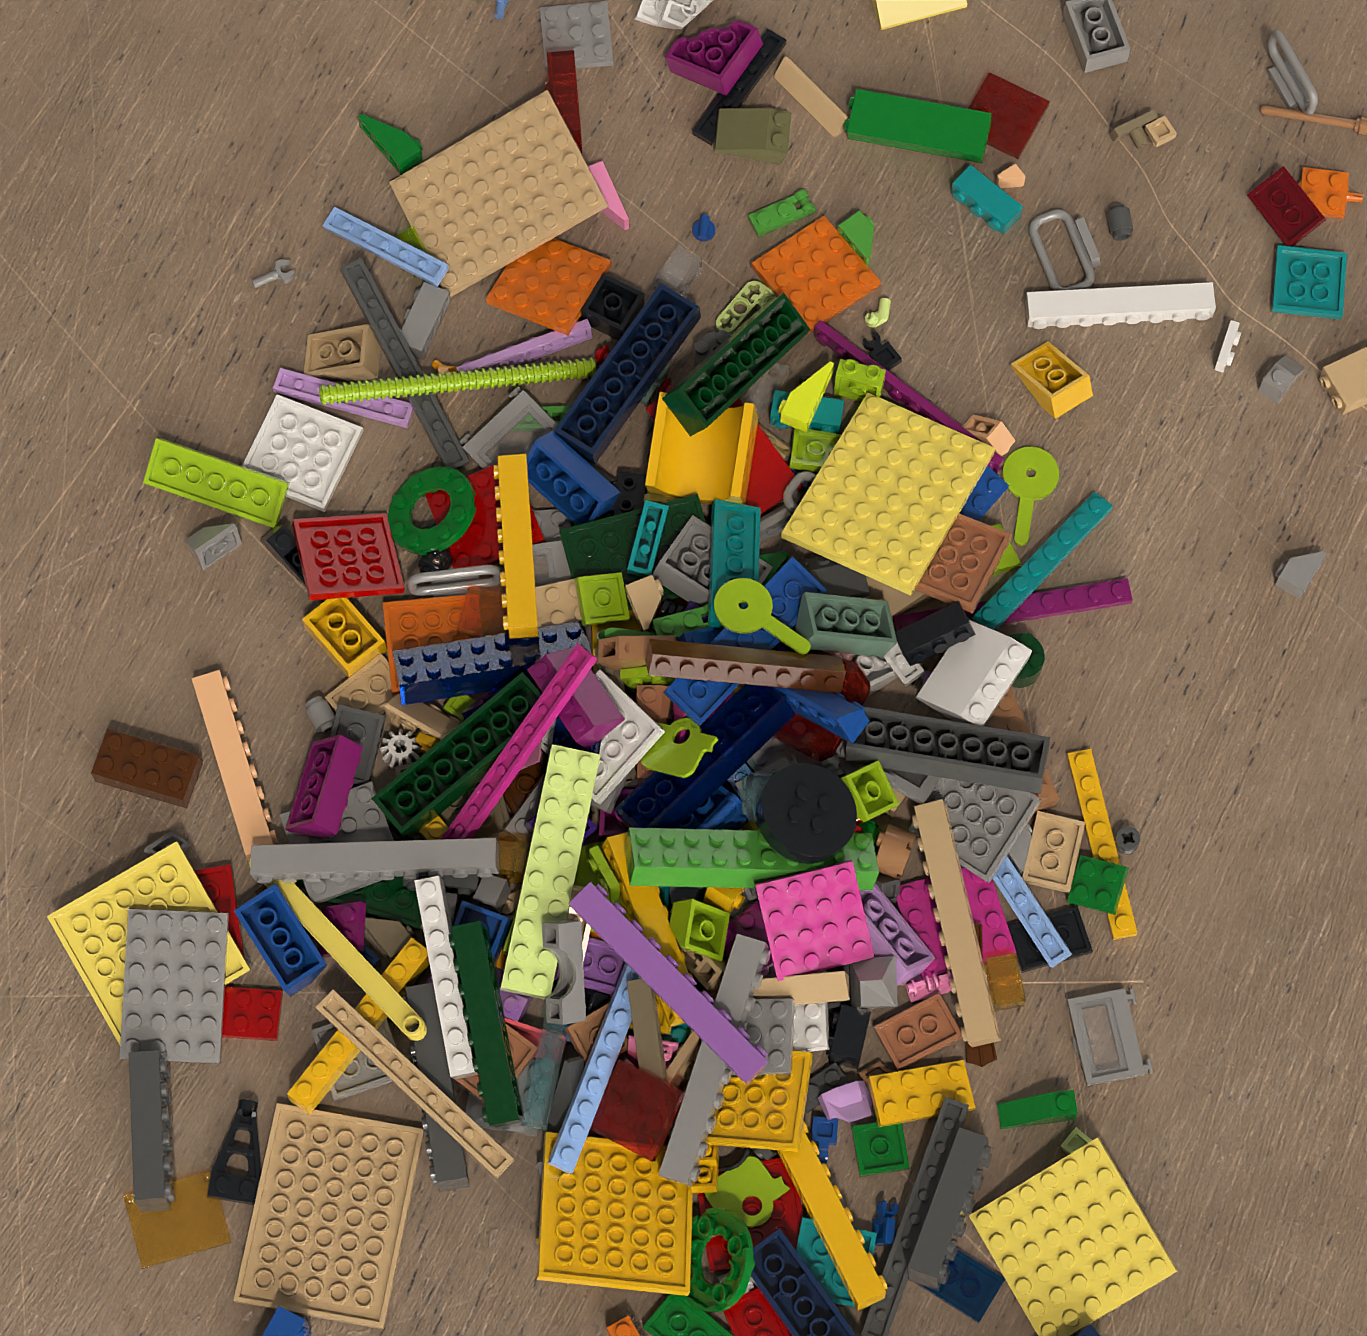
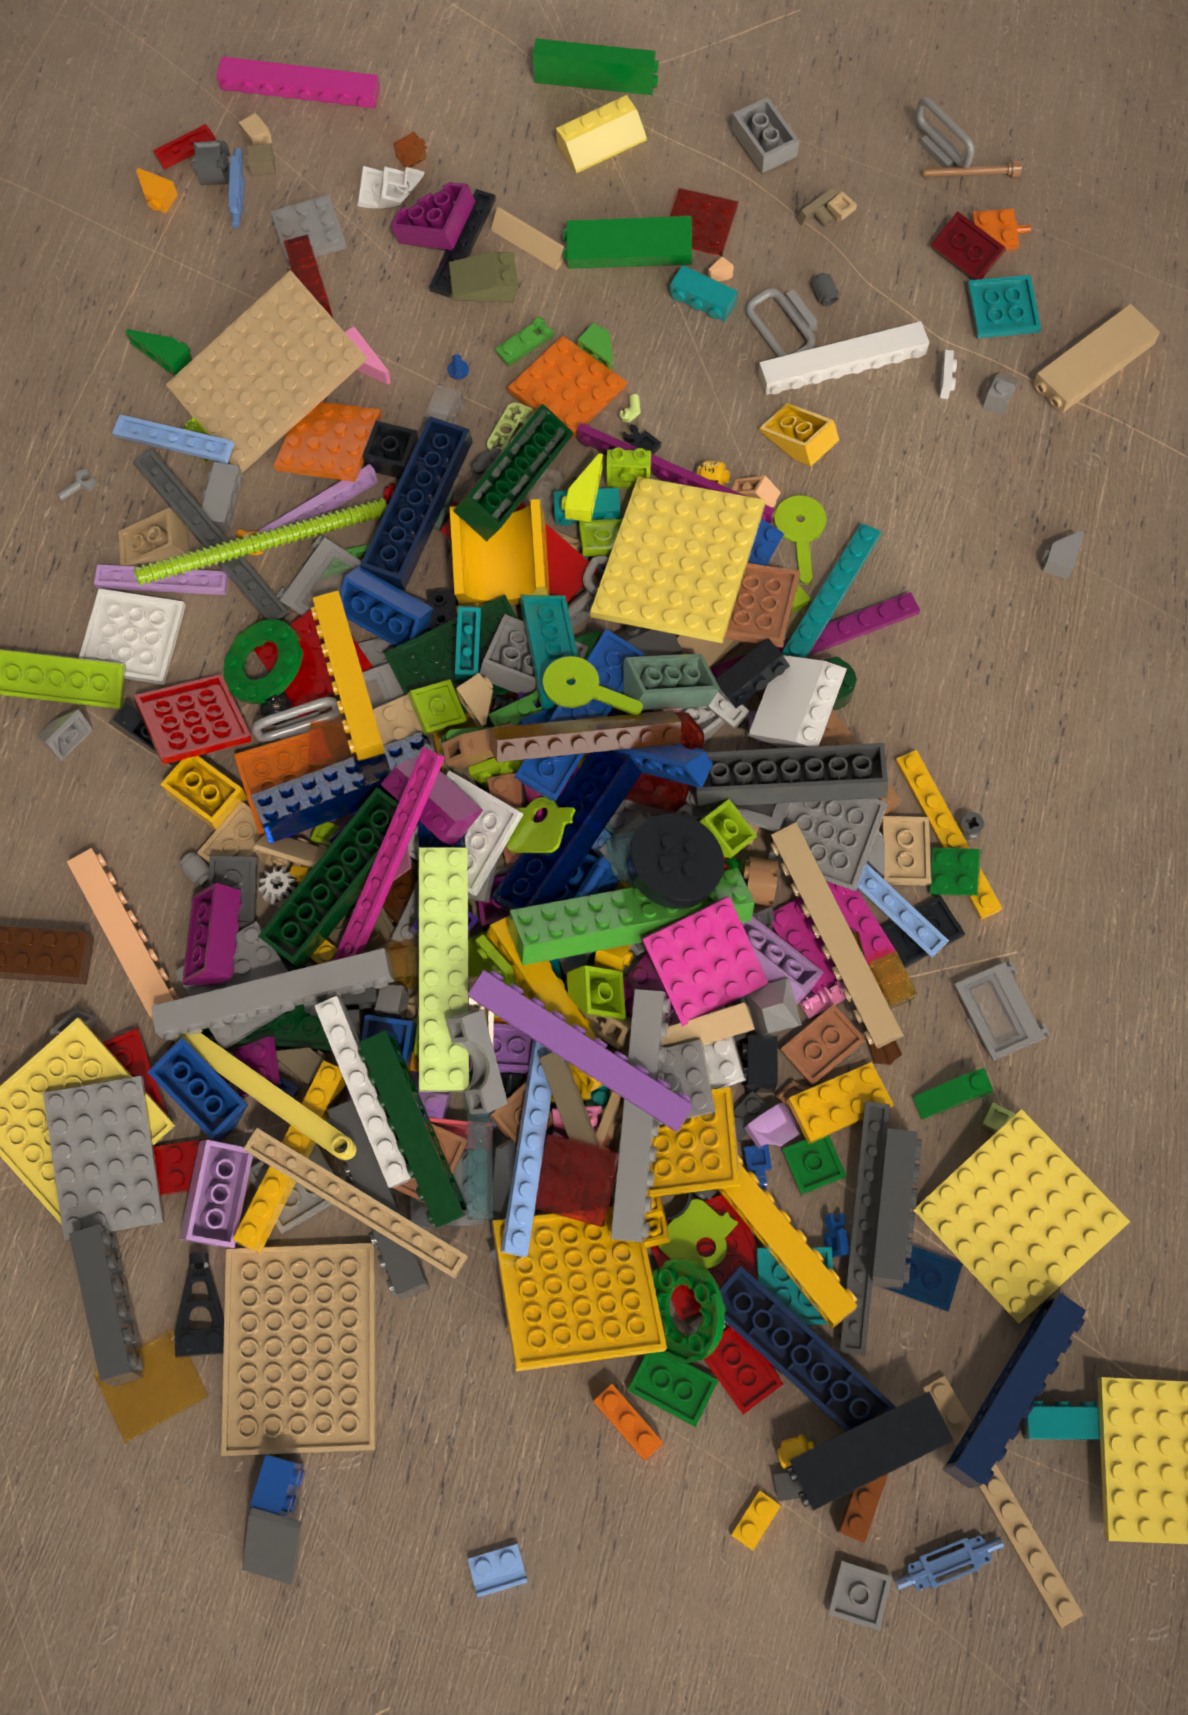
camera: 10 degrees left, 0 degrees up
(278, 1047) = (216, 1194): none -> lavender brick
(950, 403) = (714, 471): none -> yellow head

